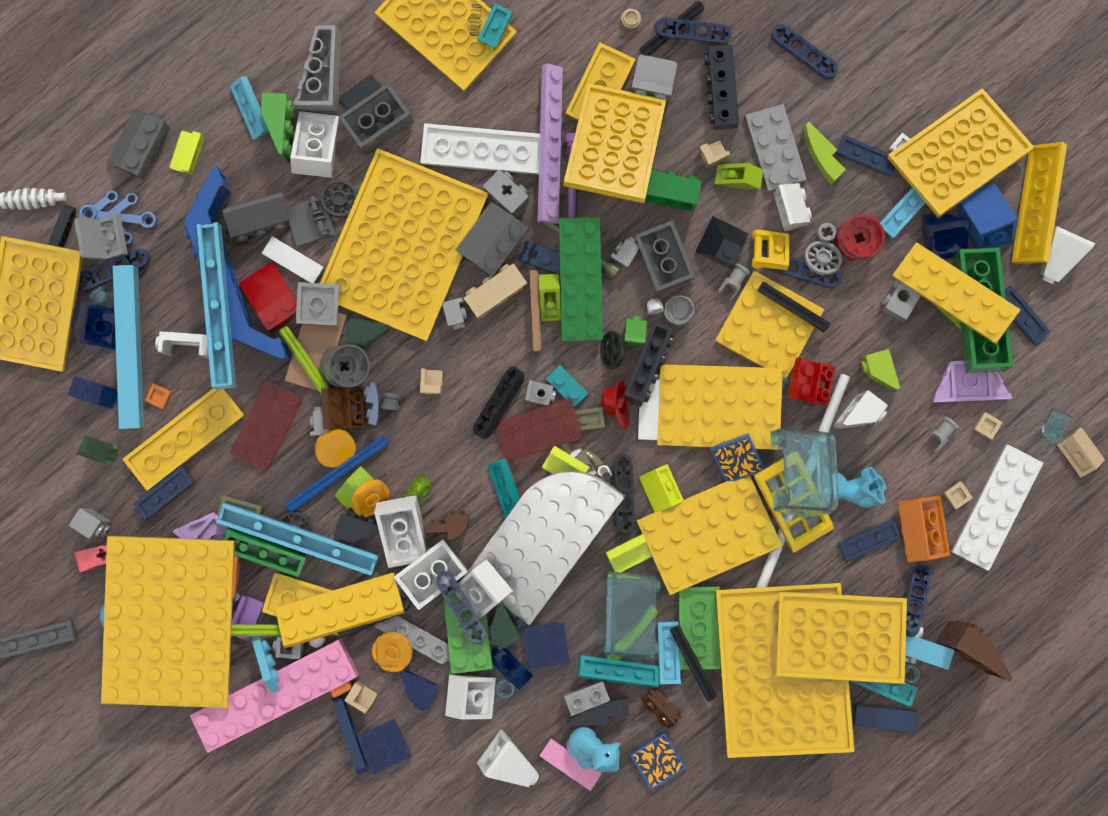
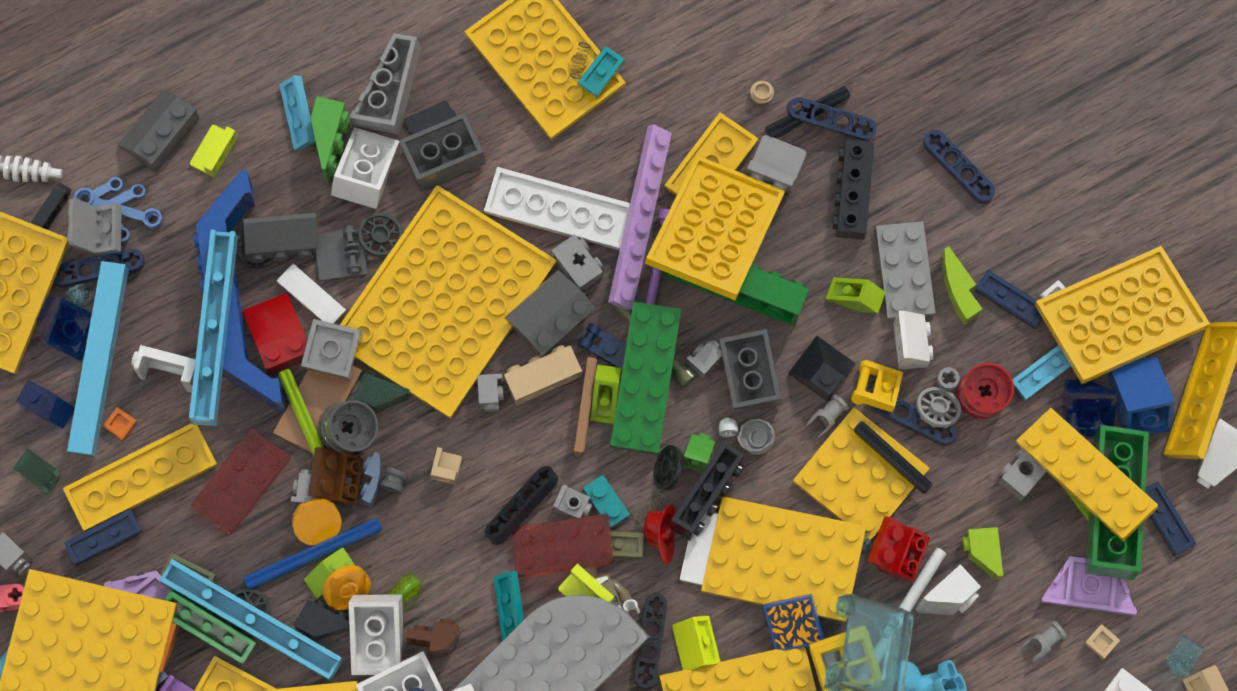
camera: 10 degrees right, 10 degrees down
(713, 154) = (830, 263): tan panel -> none

